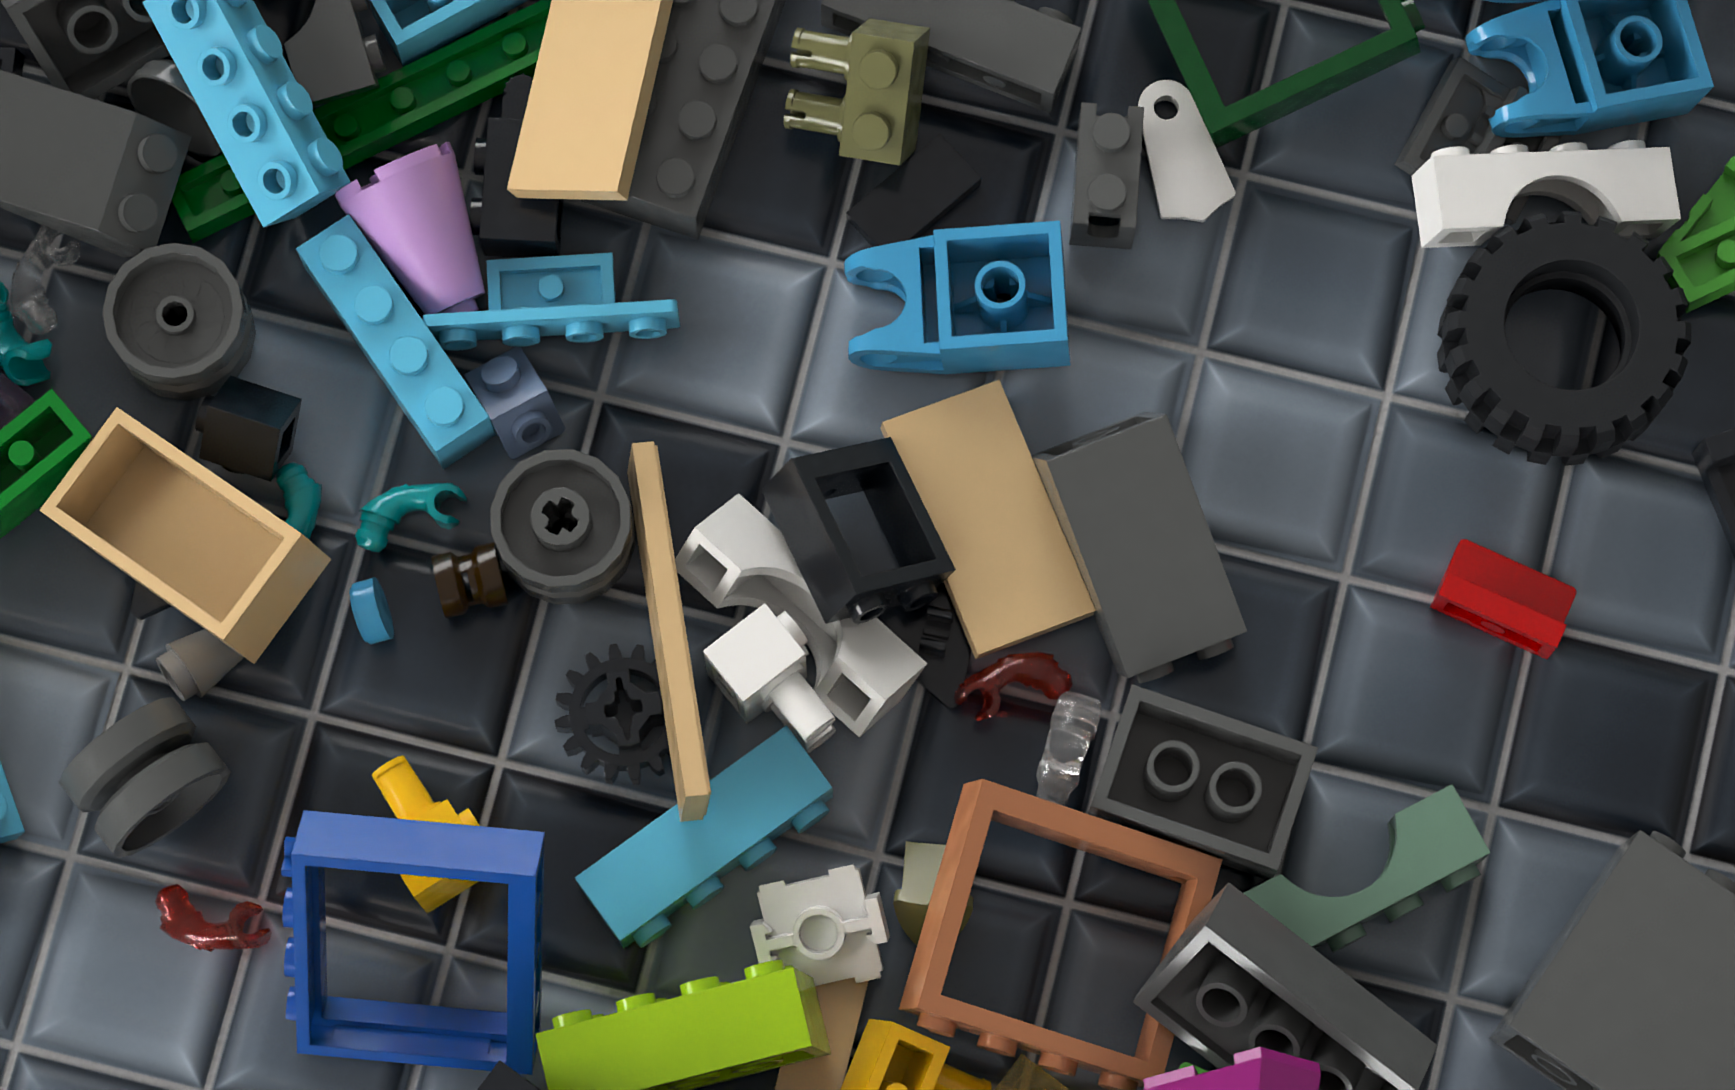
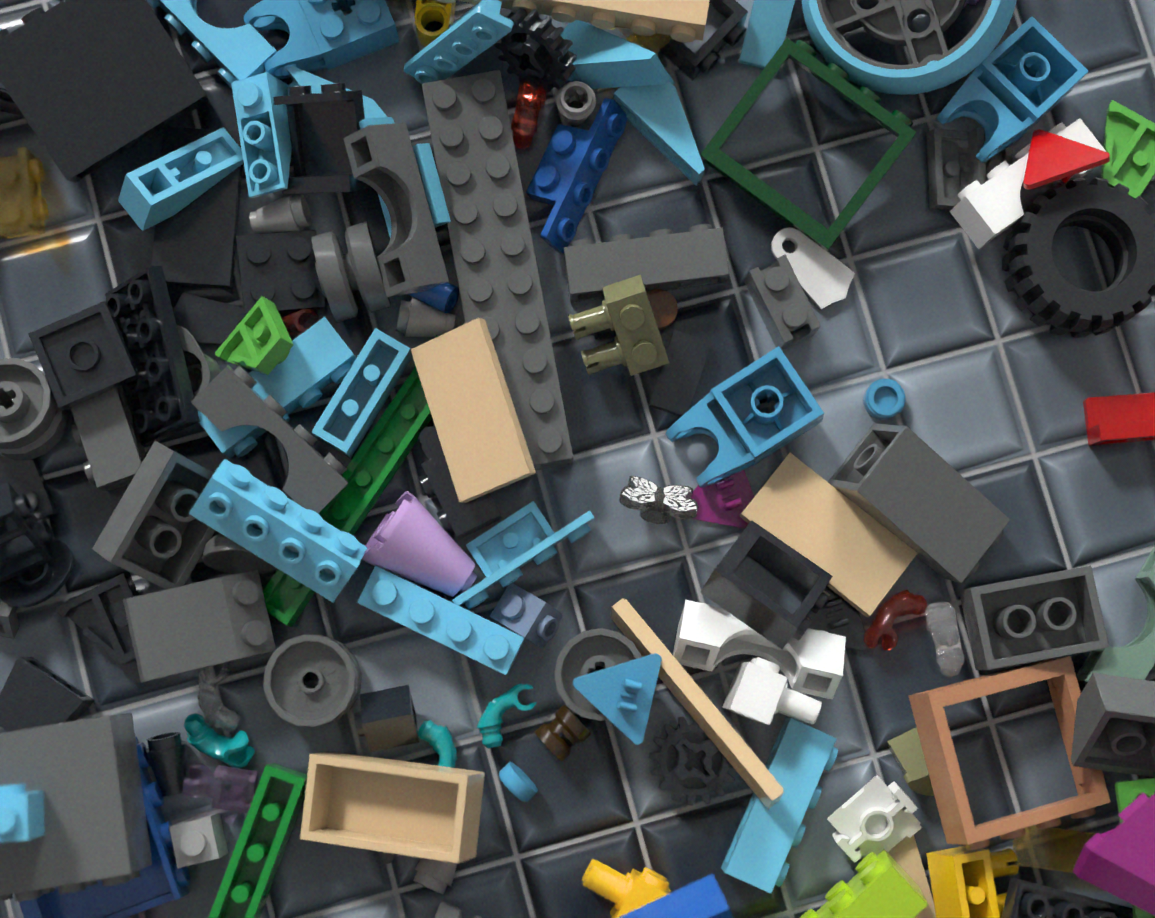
camera: 35 degrees left, 5 degrees up
(576, 558) = (624, 693): none -> dark azure piece
(775, 346) = (658, 503): none -> clear smoke animal
(865, 396) = (724, 501): none -> magenta piece
(941, 97) = (663, 307): none -> reddish brown tile
(1177, 385) = (884, 399): none -> dark azure tile
(1593, 172) = (1058, 158): none -> piece

